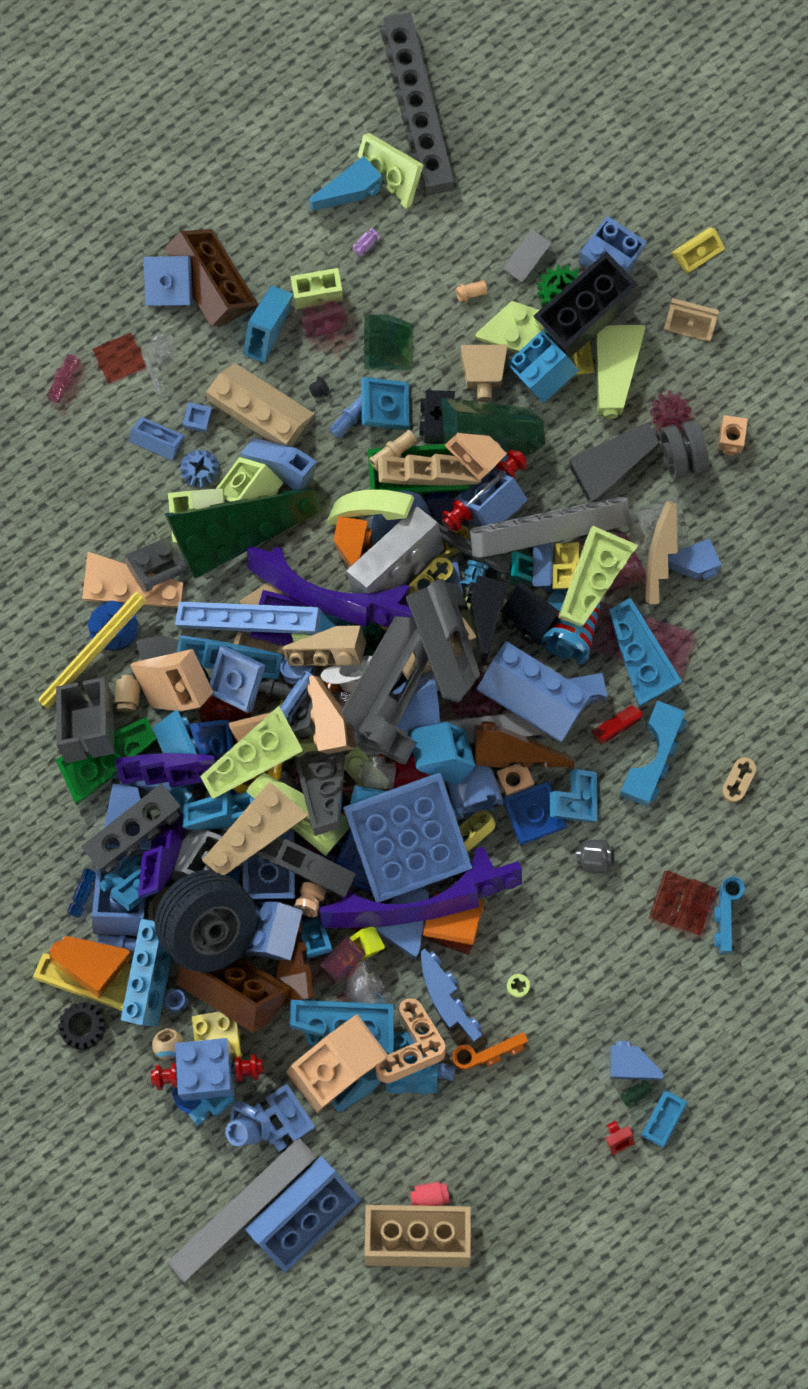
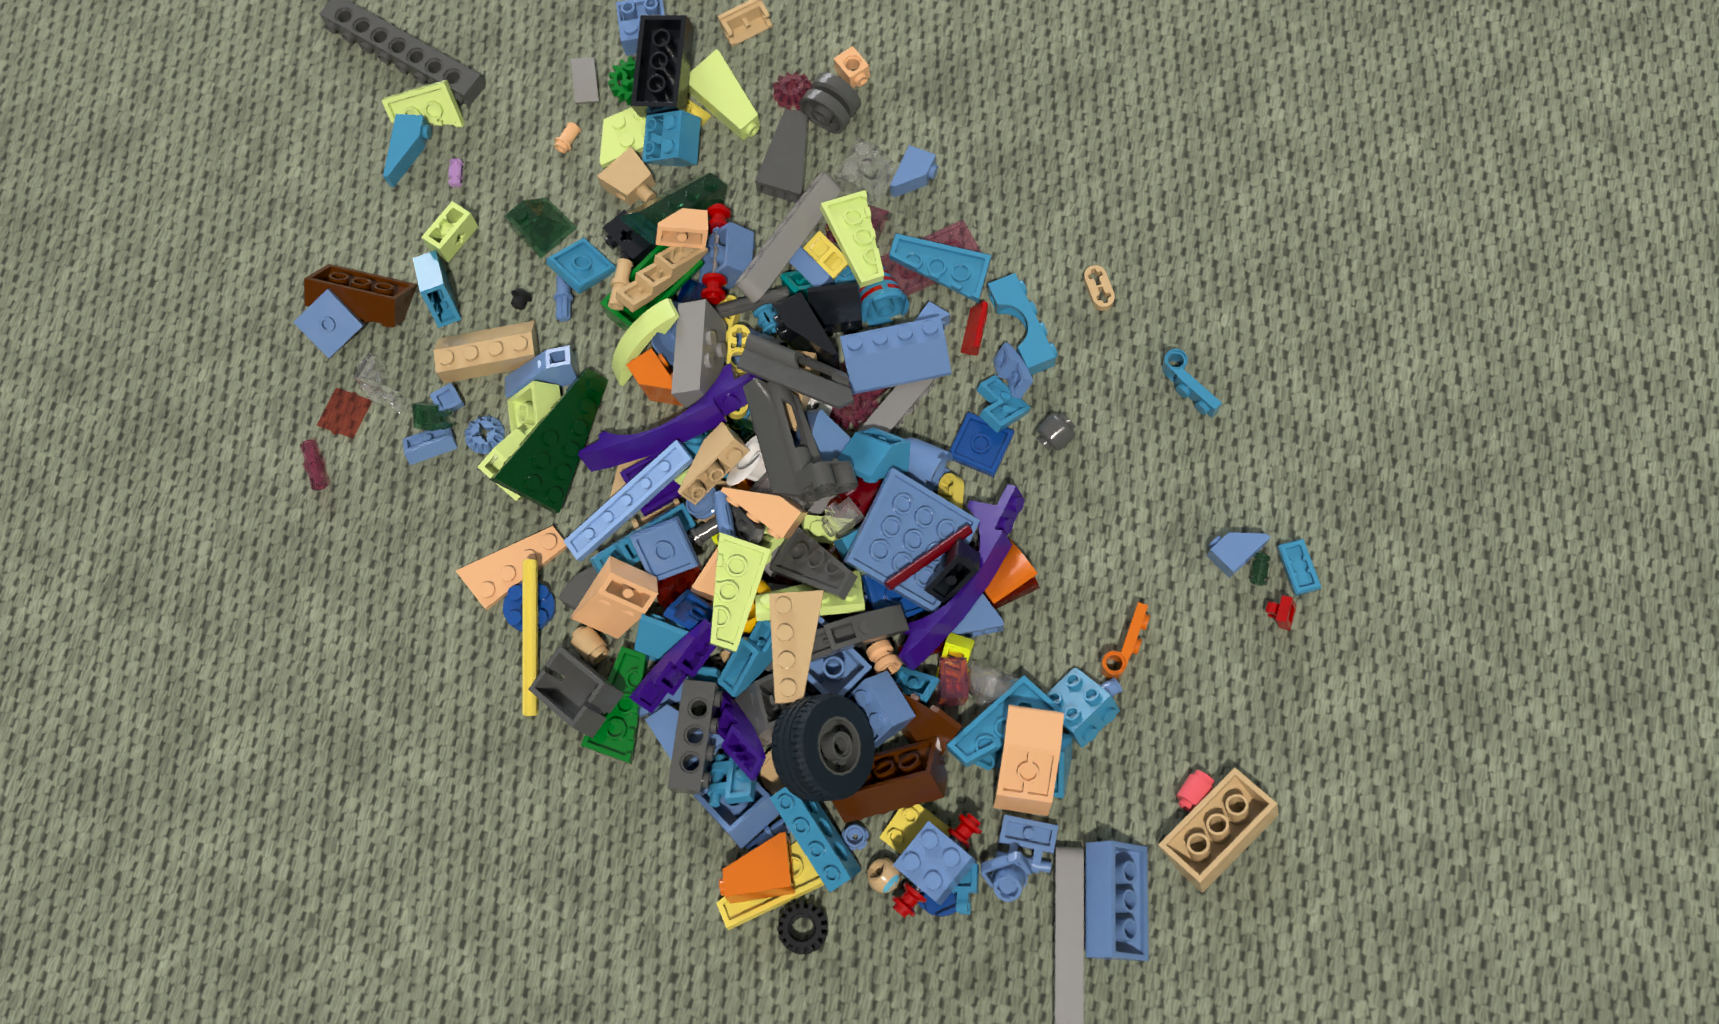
camera: 35 degrees left, 5 degrees down
(82, 893) = (701, 827): clear blue axle -> none
(154, 558) = (512, 528): dark grey plate -> none
(172, 418) = (428, 417): none -> clear green plate
(324, 322) = (478, 251): clear pink hips -> none
(406, 860) = (927, 558): none -> dark red bar
(414, 887) = (953, 571): none -> black slope
(421, 1043) = (1076, 686): light nougat beam -> none
(440, 988) = (1043, 632): medium blue slope -> none
(499, 746) = (914, 415): reddish brown wedge -> none
(514, 992) = (1100, 583): yellowish green bush -> none
(521, 773) = (943, 424): light nougat brick -> none
(612, 778) = (1012, 367): none -> medium blue slope
(662, 544) = (880, 173): tan slope -> none
(692, 908) = (1158, 400): clear red slope -> none

